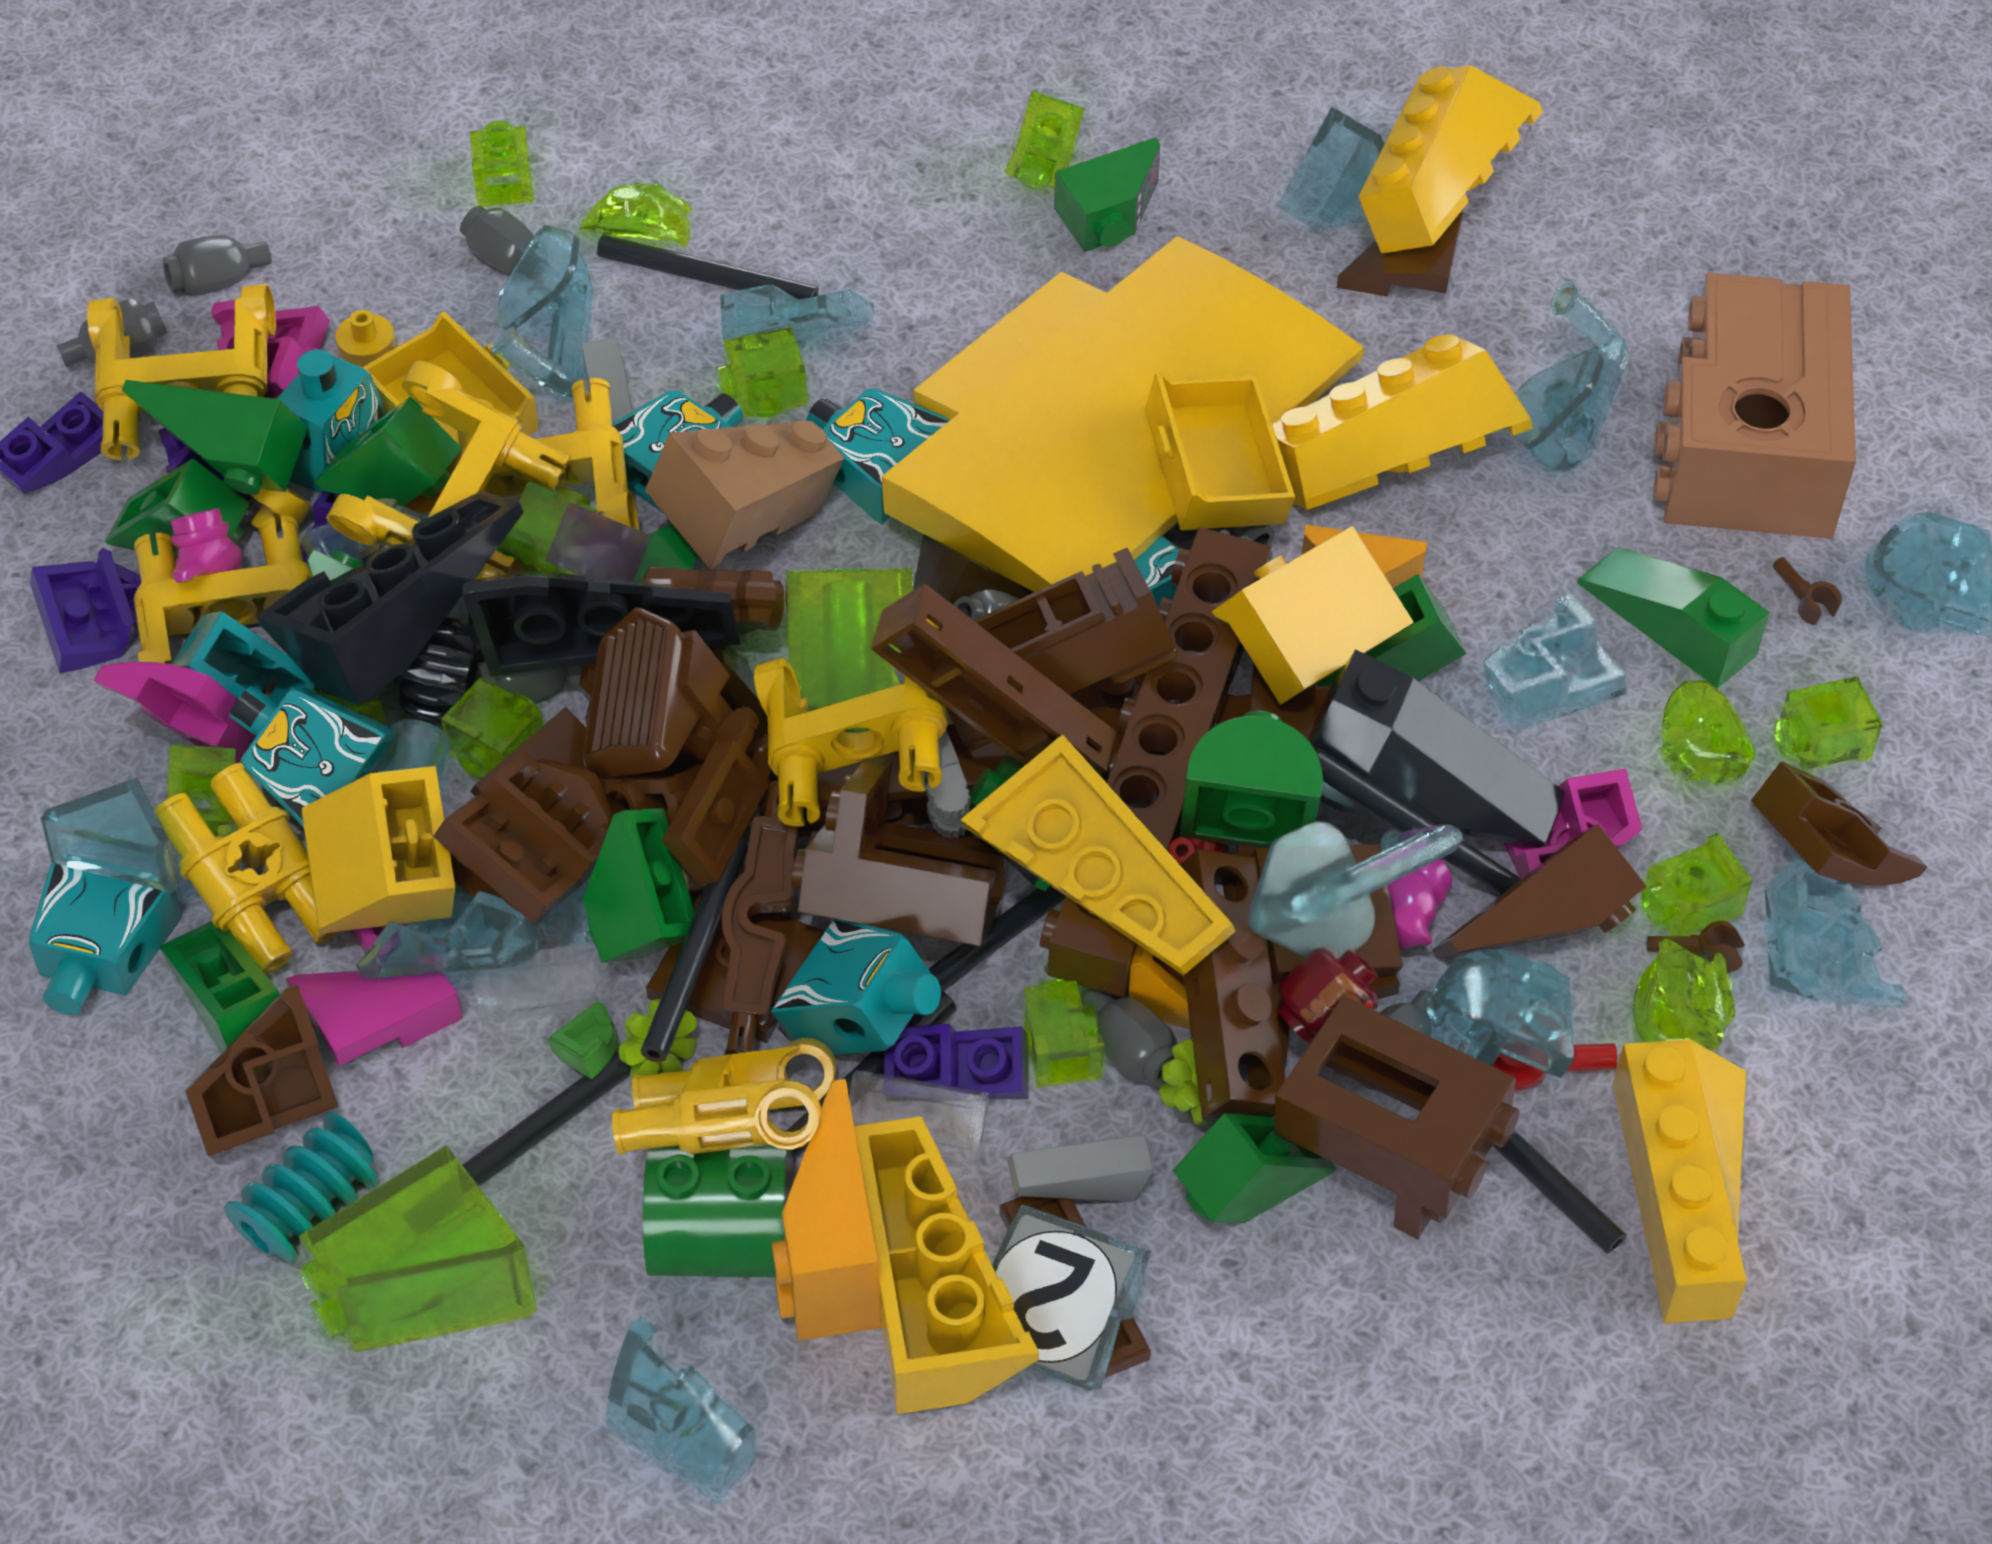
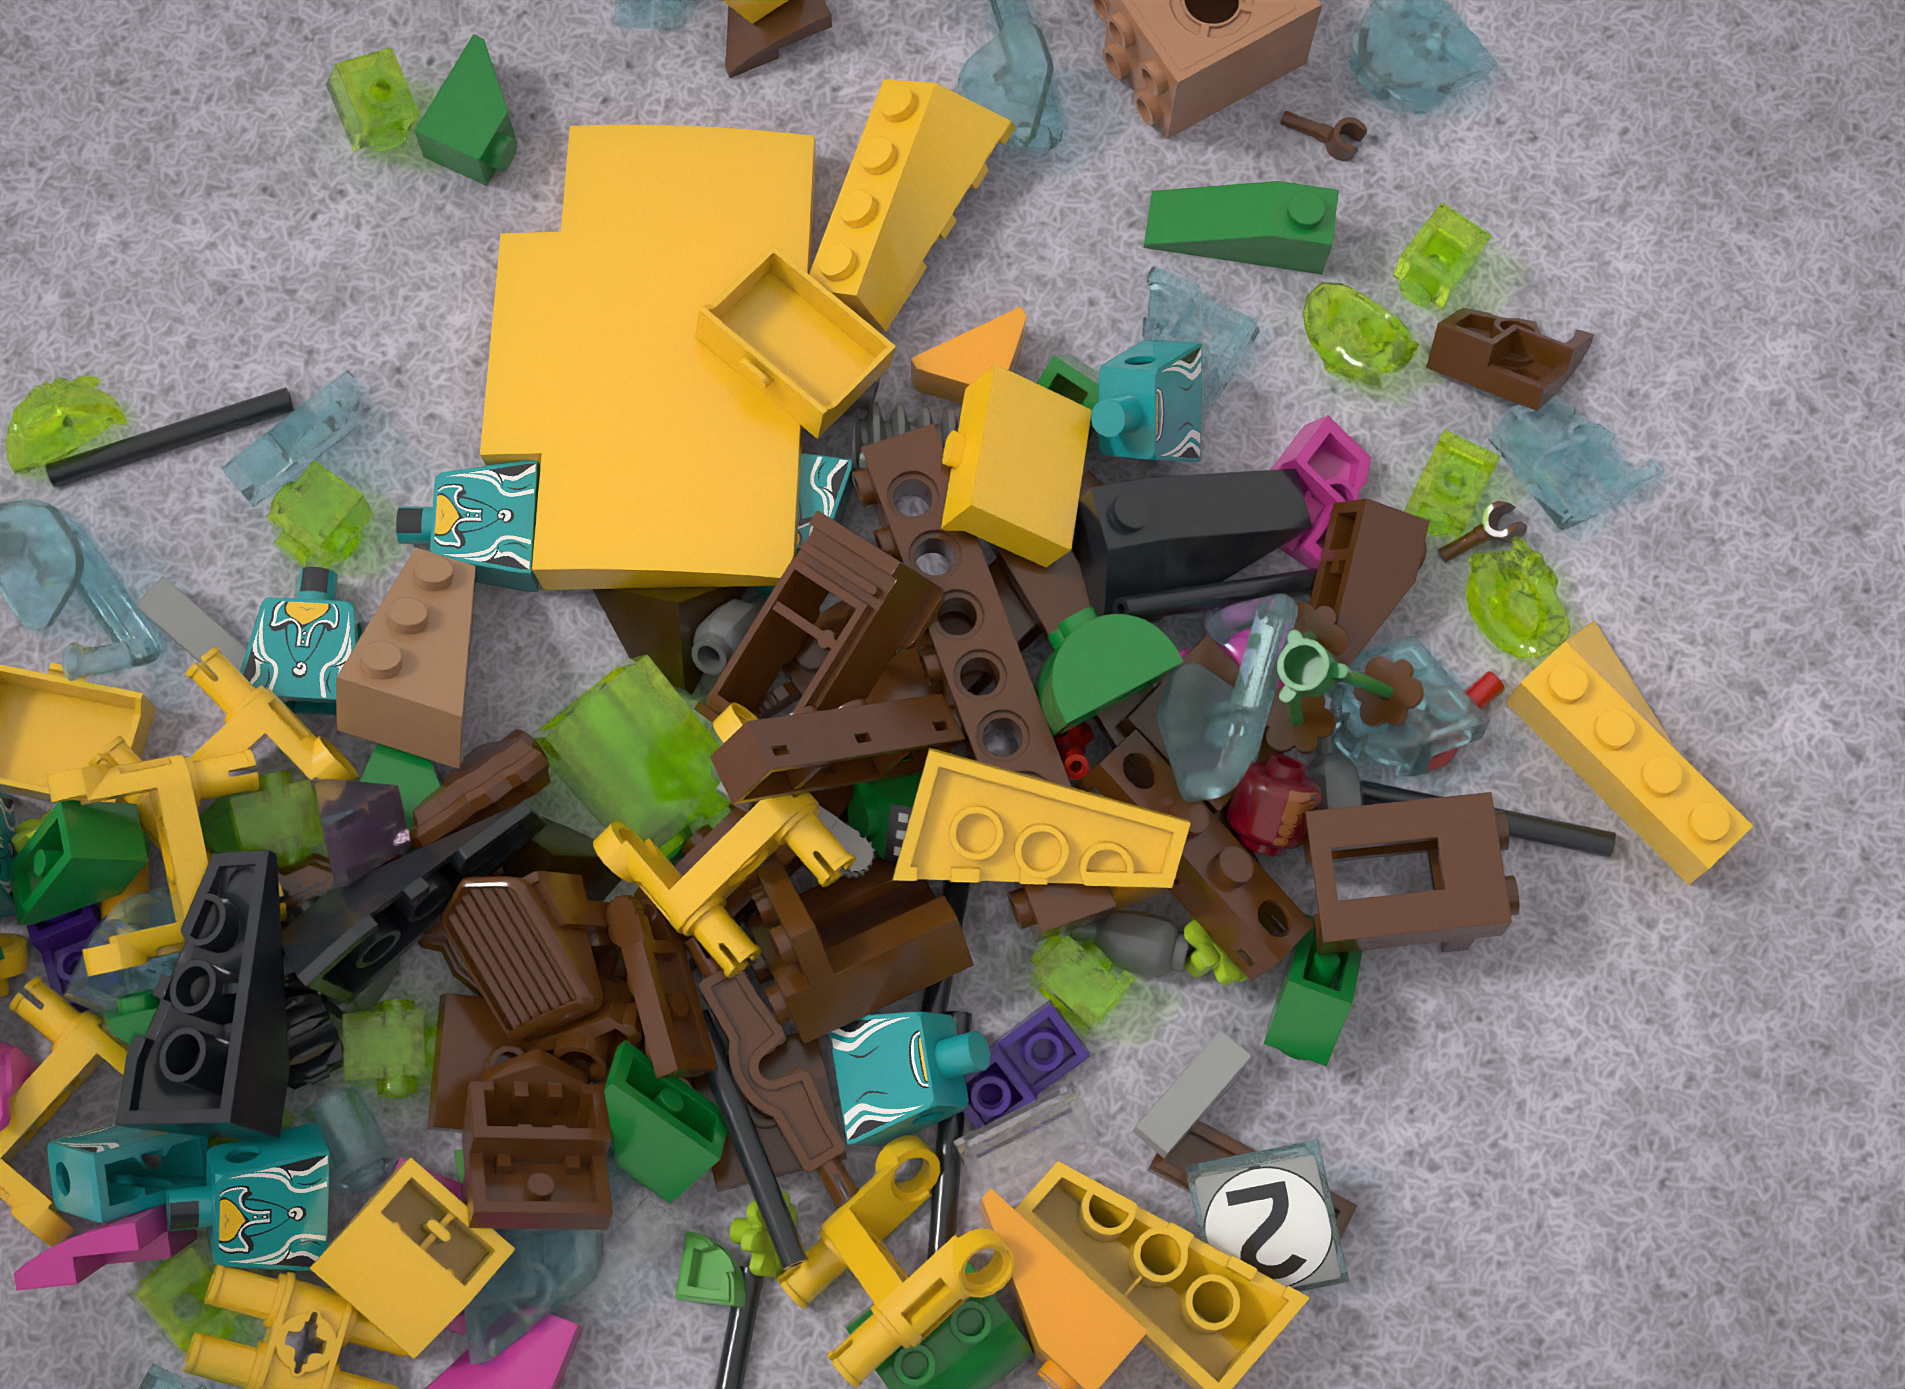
camera: 40 degrees left, 20 degrees up
(1448, 894) = (1311, 671): none -> reddish brown plant
(1471, 658) = (1151, 402): none -> teal torso

